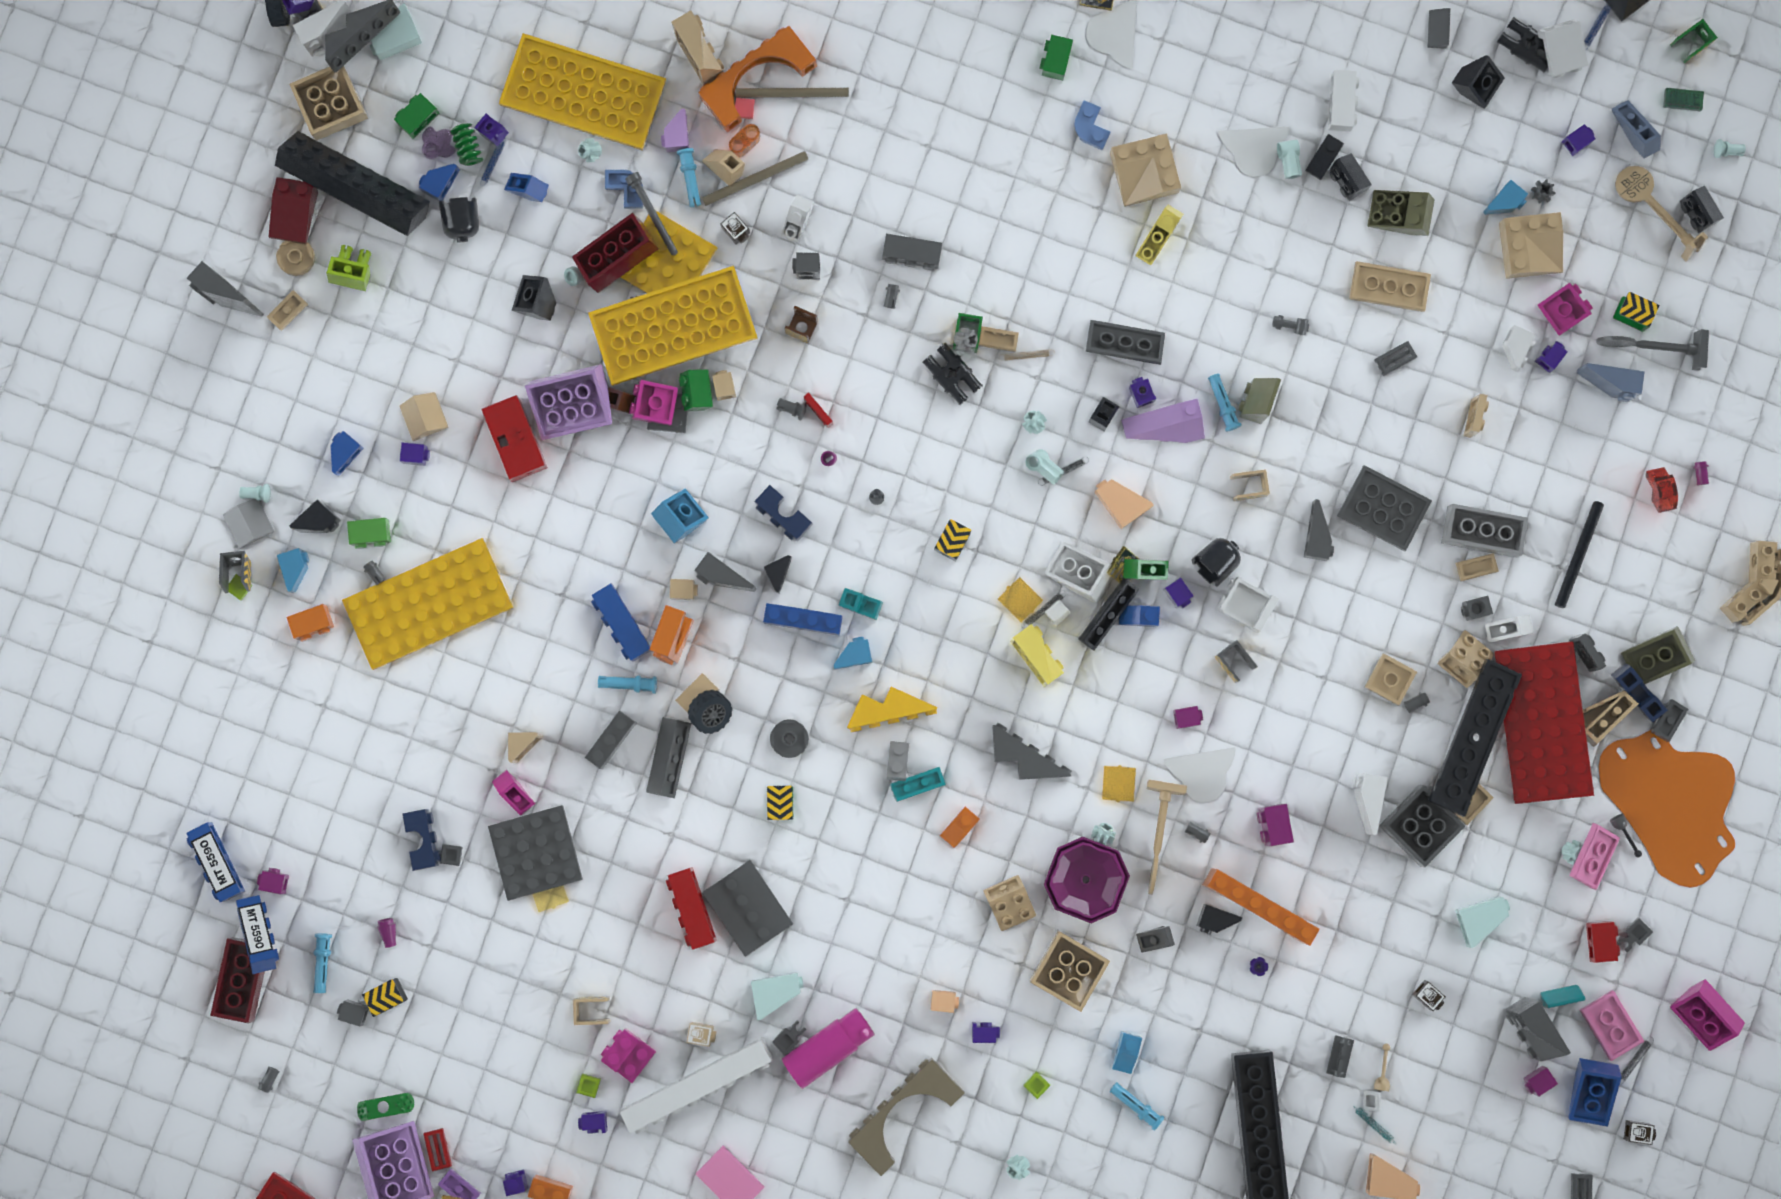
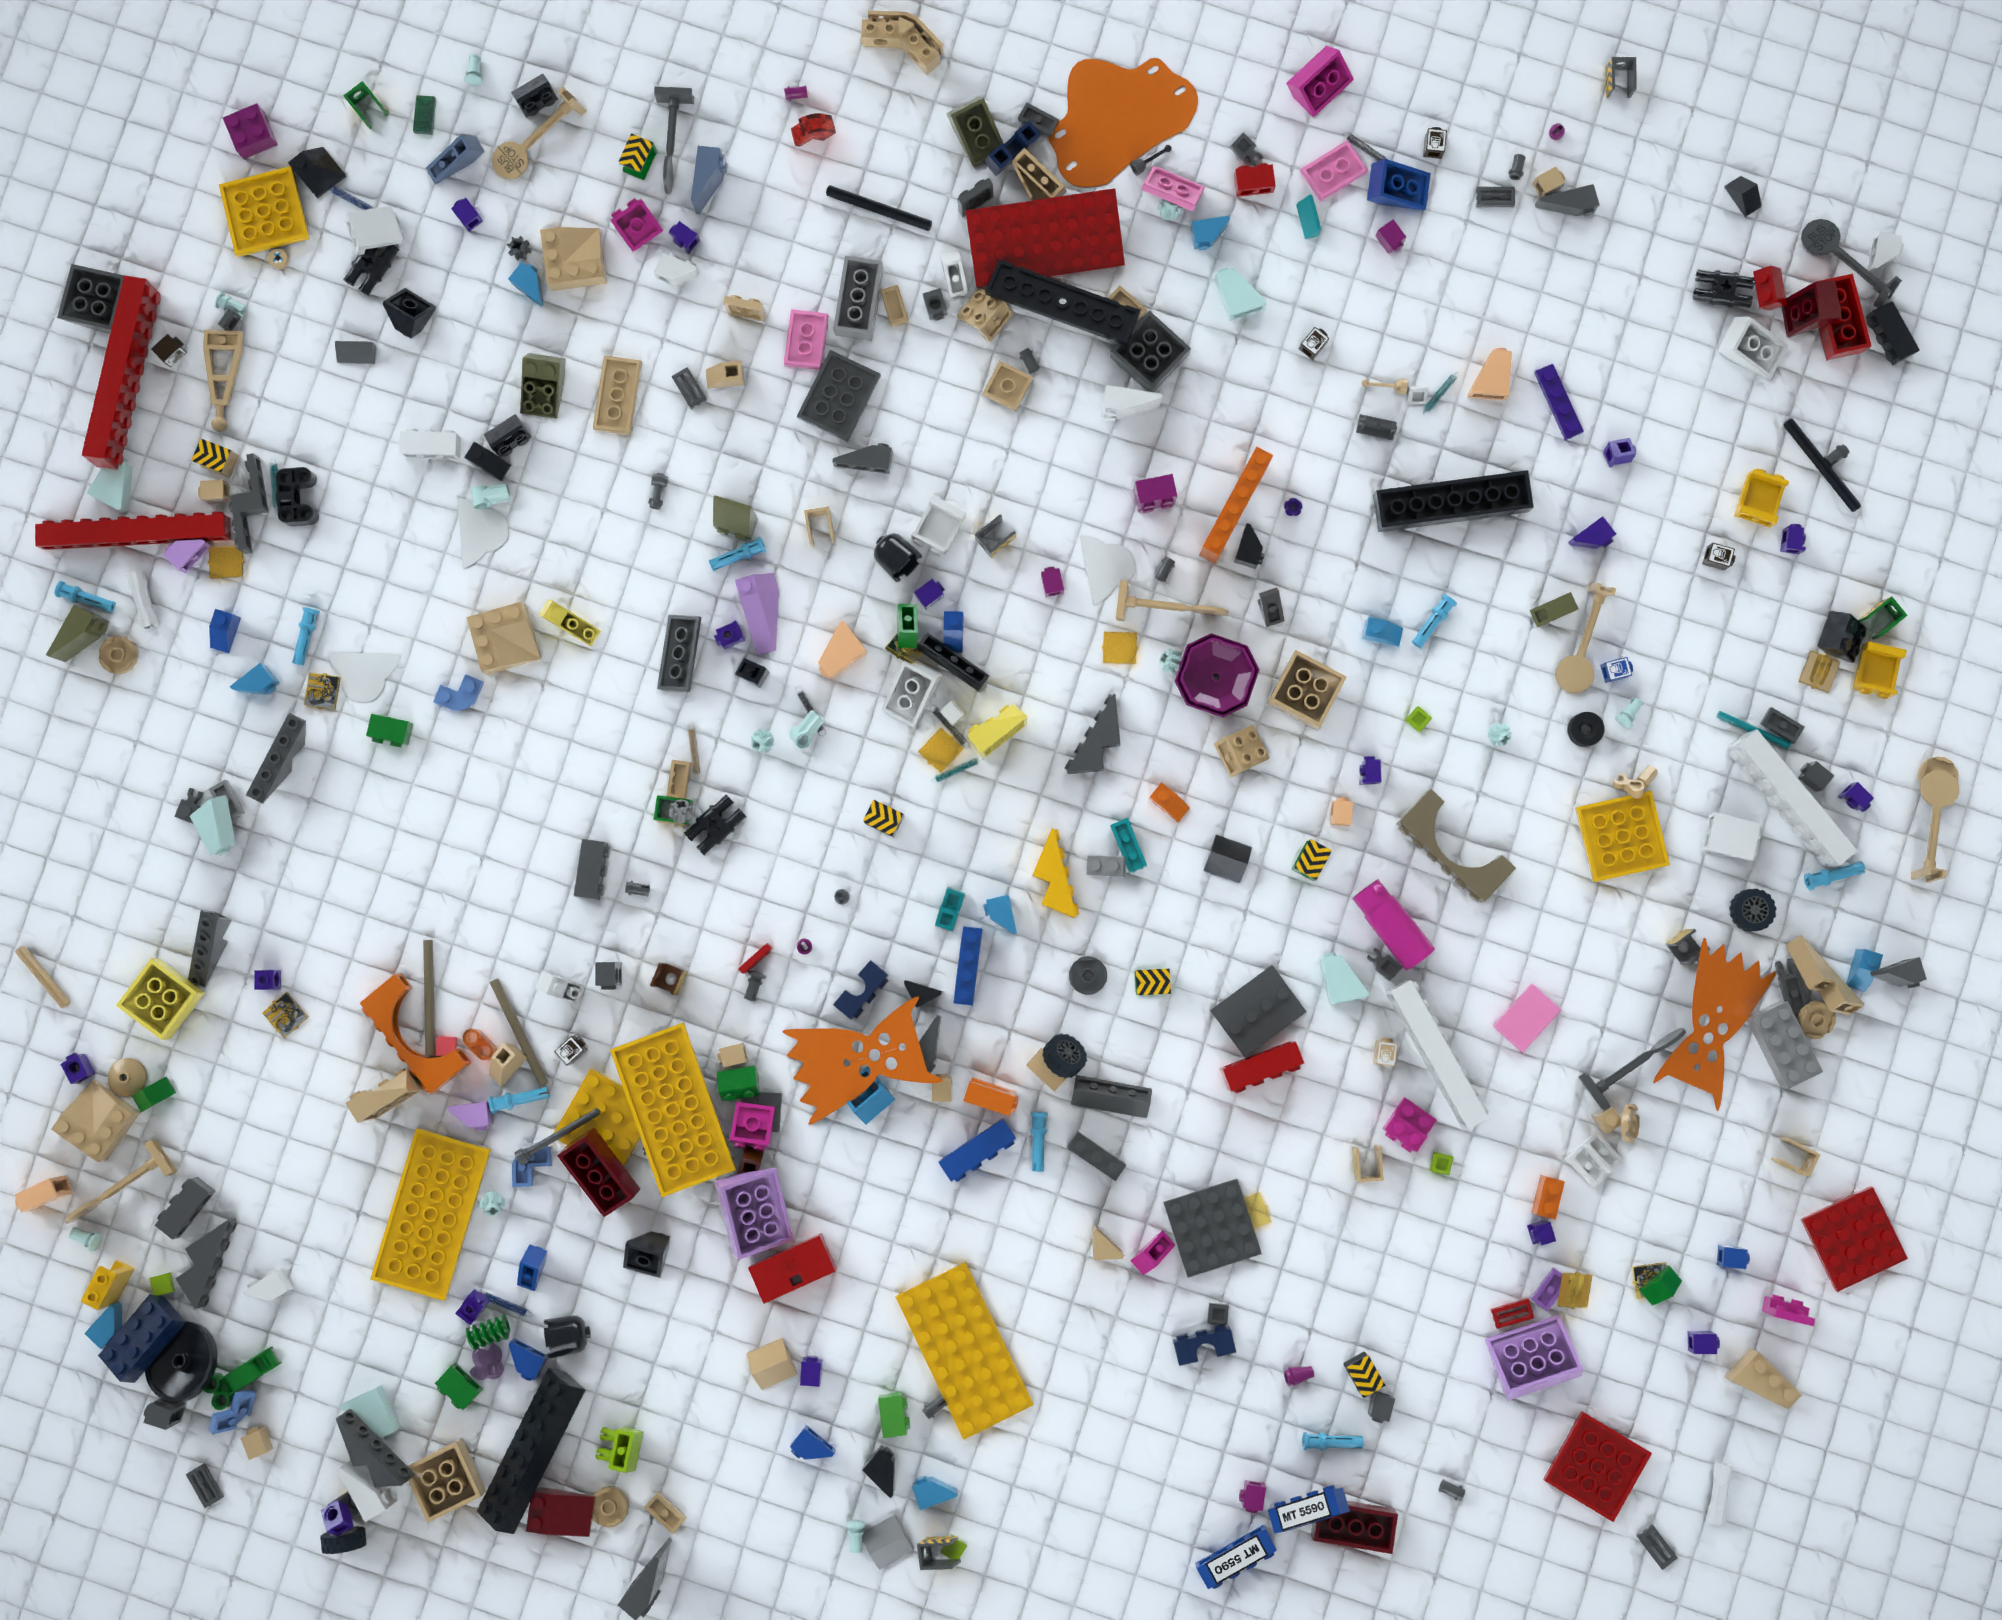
camera: 85 degrees left, 0 degrees up
(310, 622) = (987, 1471): orange brick -> none
(397, 1104) = (1470, 1356): green piece -> none
(573, 276) = (623, 1215): light aqua tile -> none
(593, 1122) = (1477, 1156): dark purple brick -> none
(726, 478) = (827, 1048): none -> orange piece
(896, 968) = (1311, 860): none -> piece
(901, 884) = (1228, 859): none -> black slope
(1001, 613) = (948, 773): none -> teal piece
(1407, 394) = (725, 375): none -> tan slope
(1443, 477) = (806, 339): none -> bright pink tile
(1536, 1030) = (1343, 239): dark grey slope -> none
(1548, 890) = (1207, 231): none -> dark azure slope

